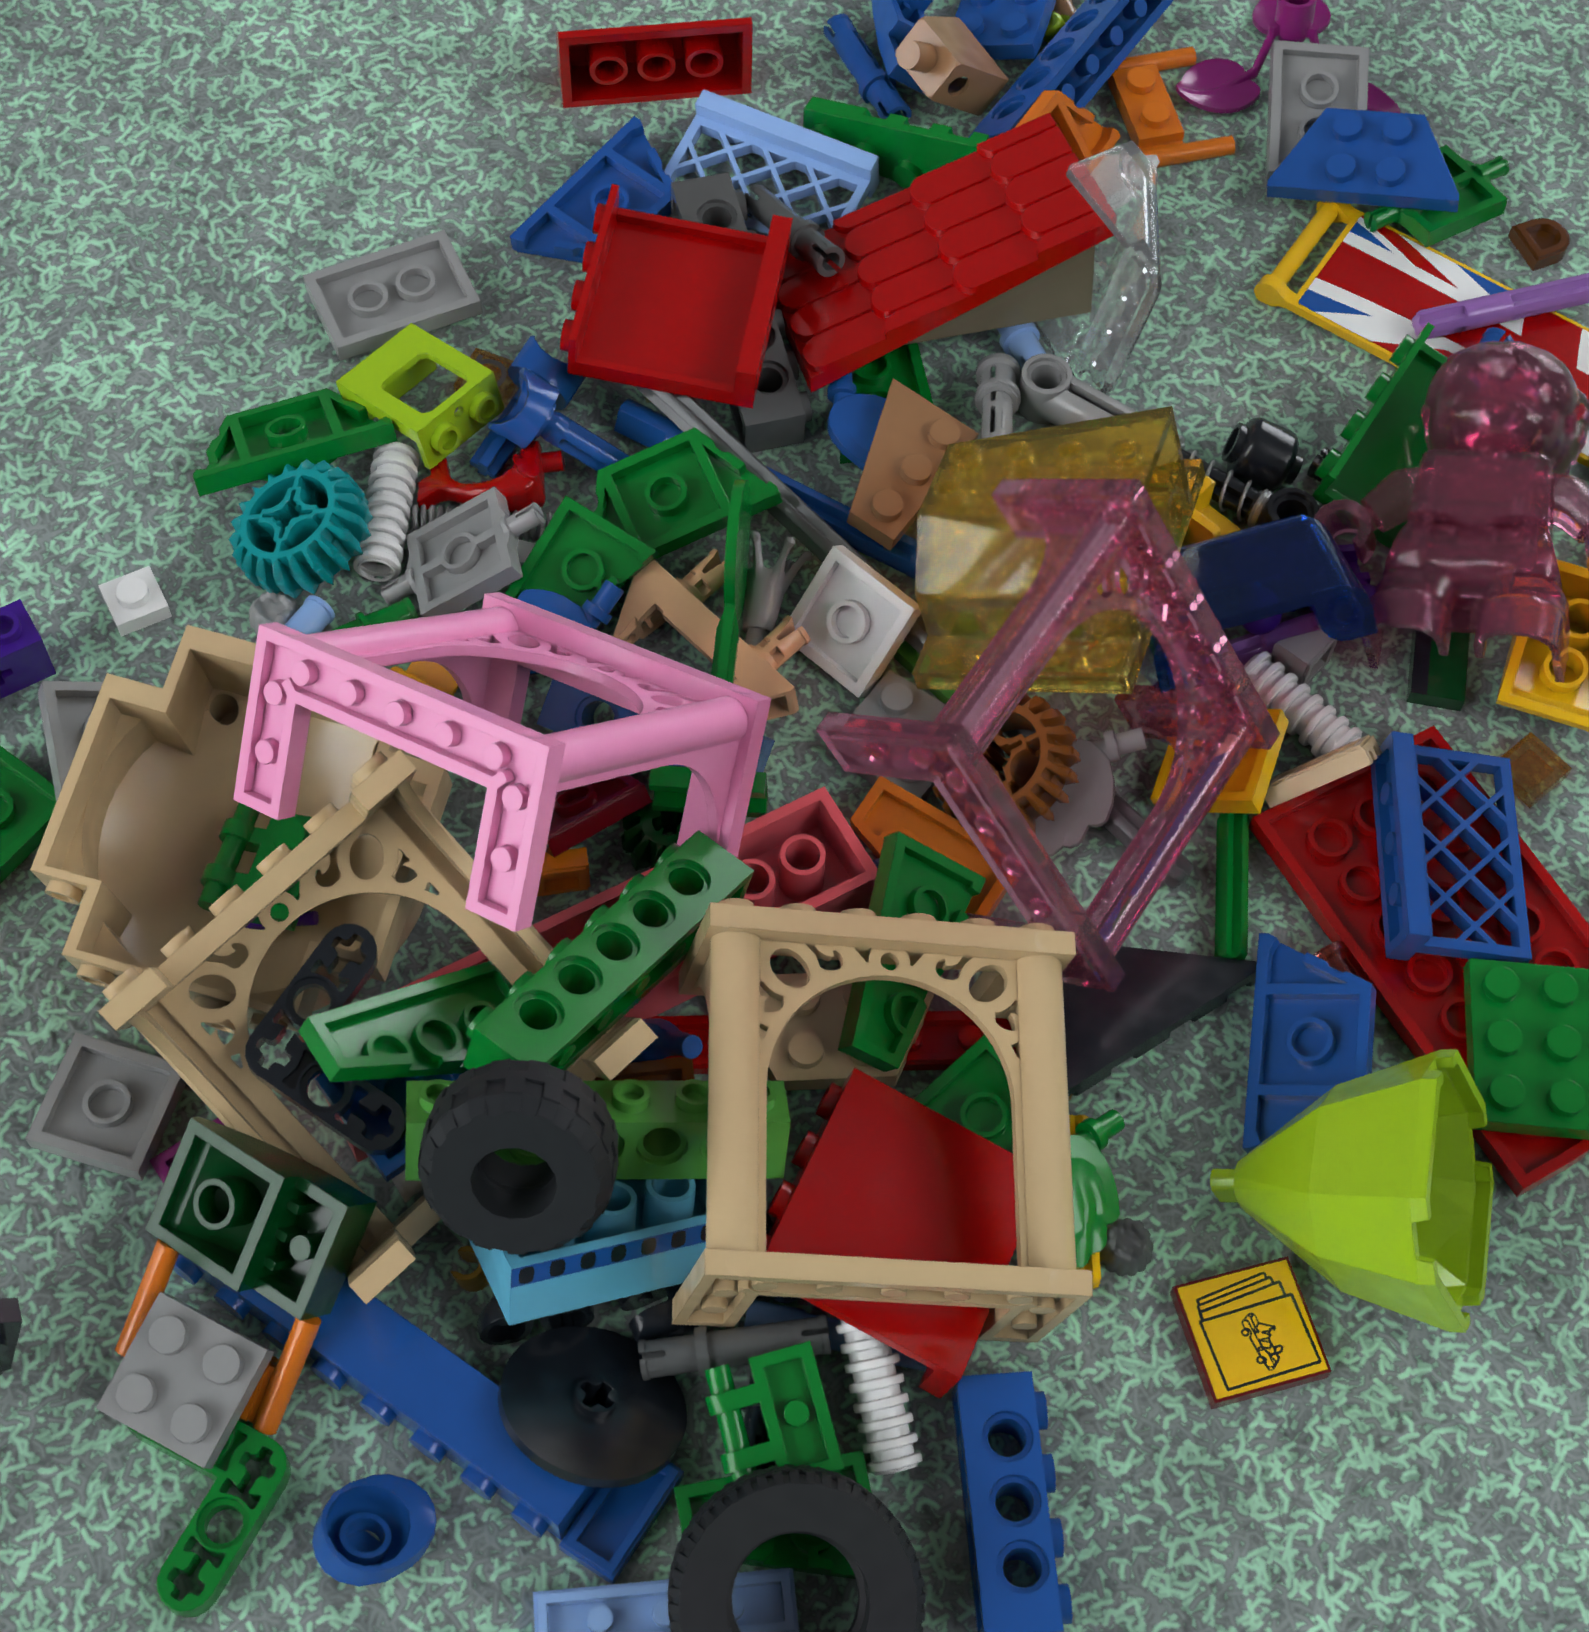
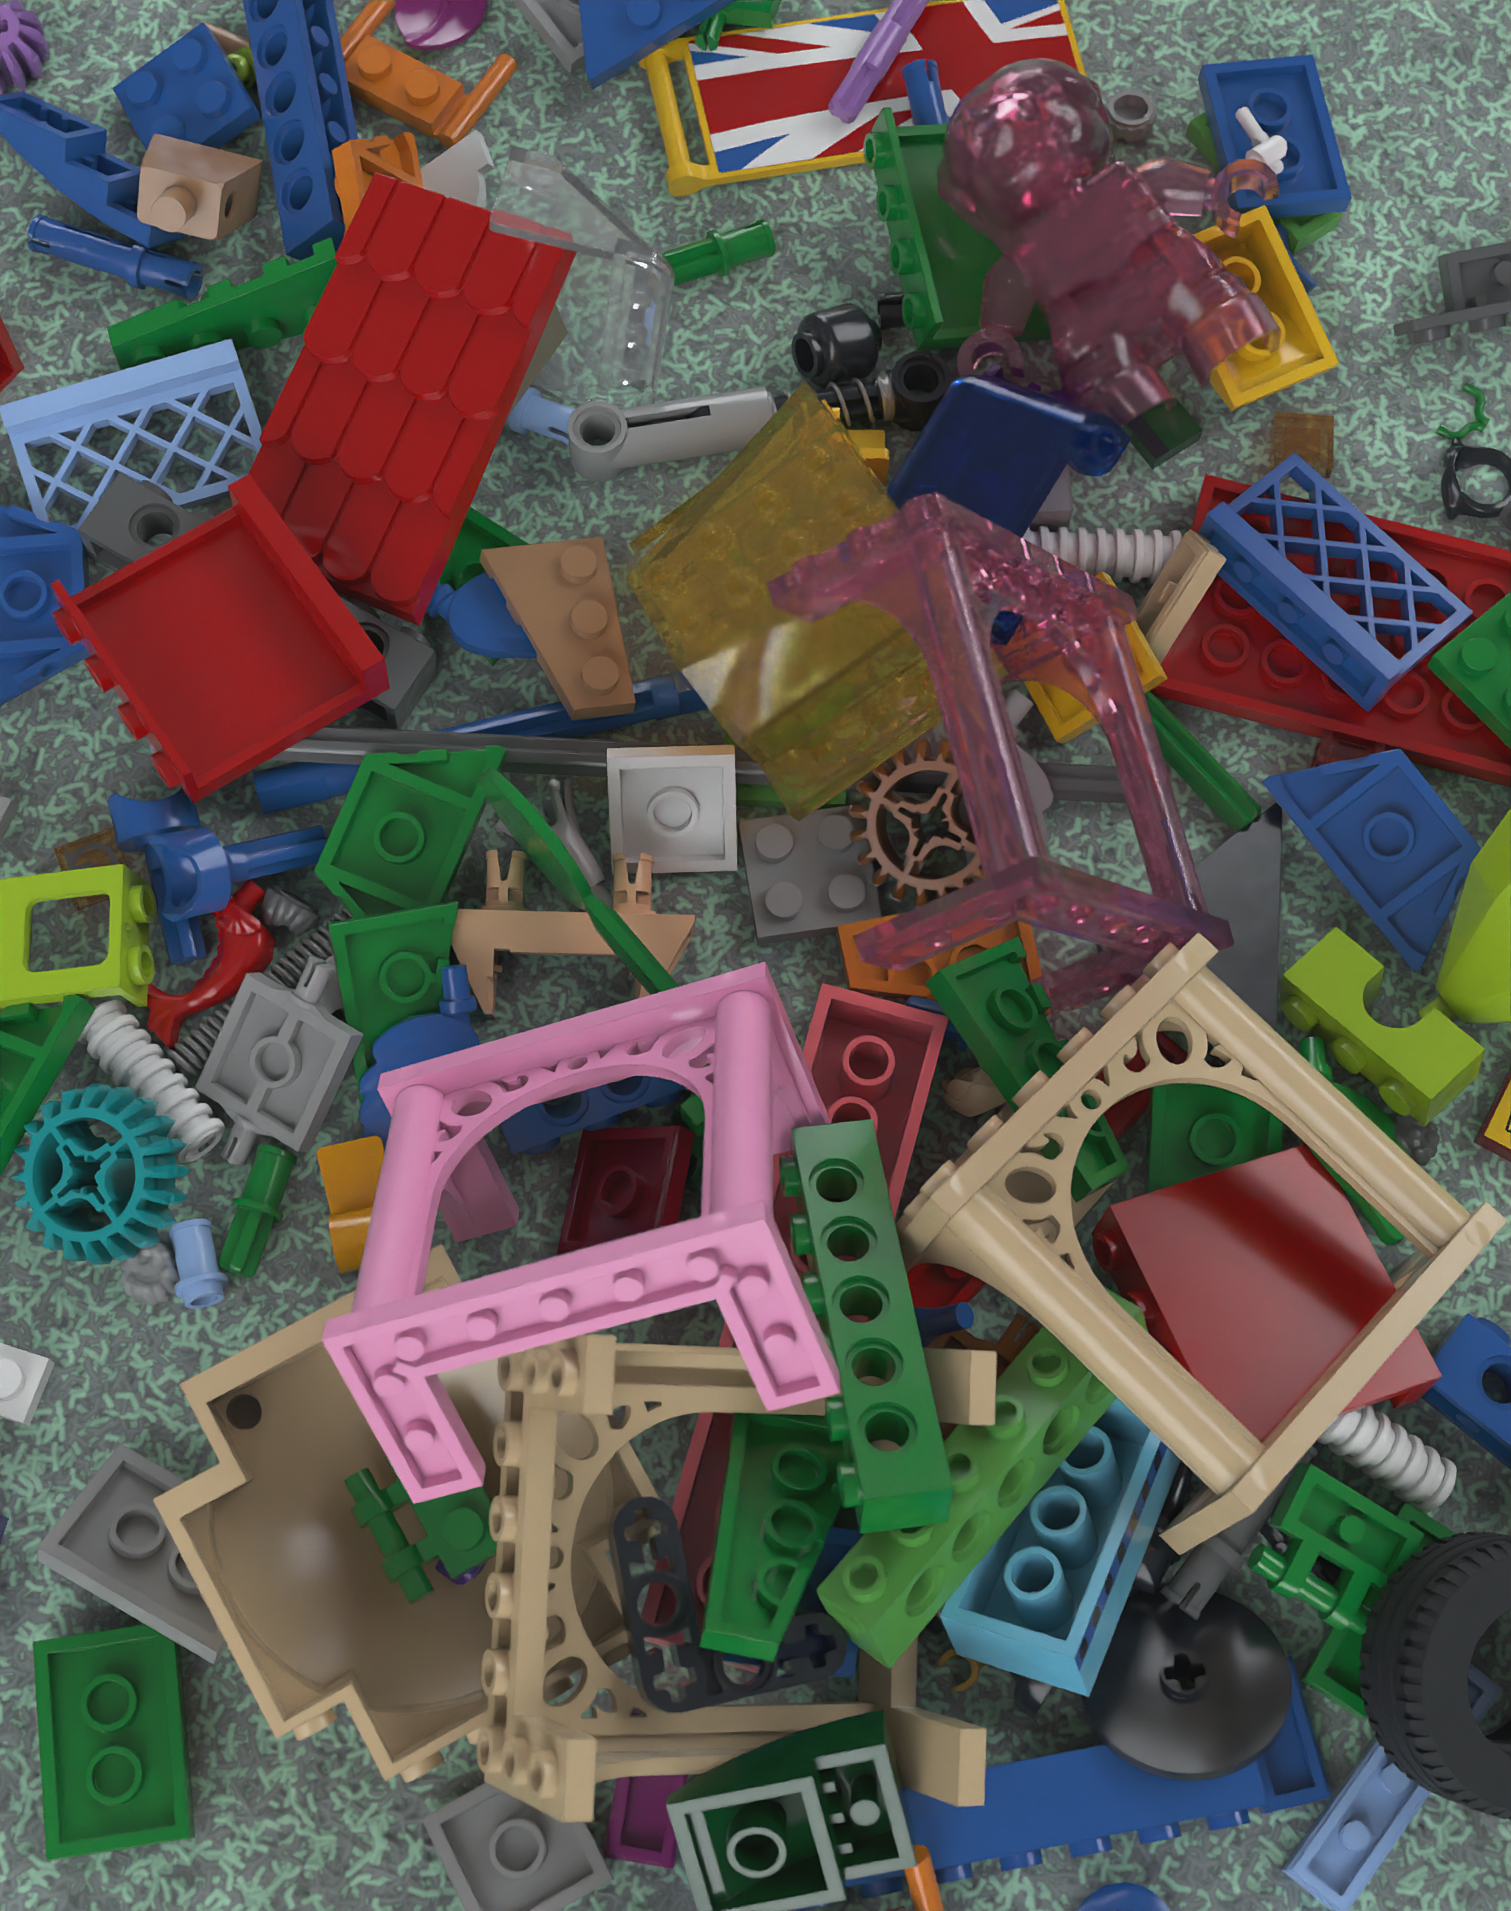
camera: 45 degrees left, 10 degrees up
(511, 1203) = (1002, 1566): black tyre -> none
(564, 483) = (288, 909): none -> dark grey piece
(807, 237) = (212, 478): dark grey pin -> none
(997, 396) = (565, 470): light grey pin -> none
(1170, 1192) = (1412, 1066): none -> lime arch
(1243, 346) = (721, 252): none -> green axle

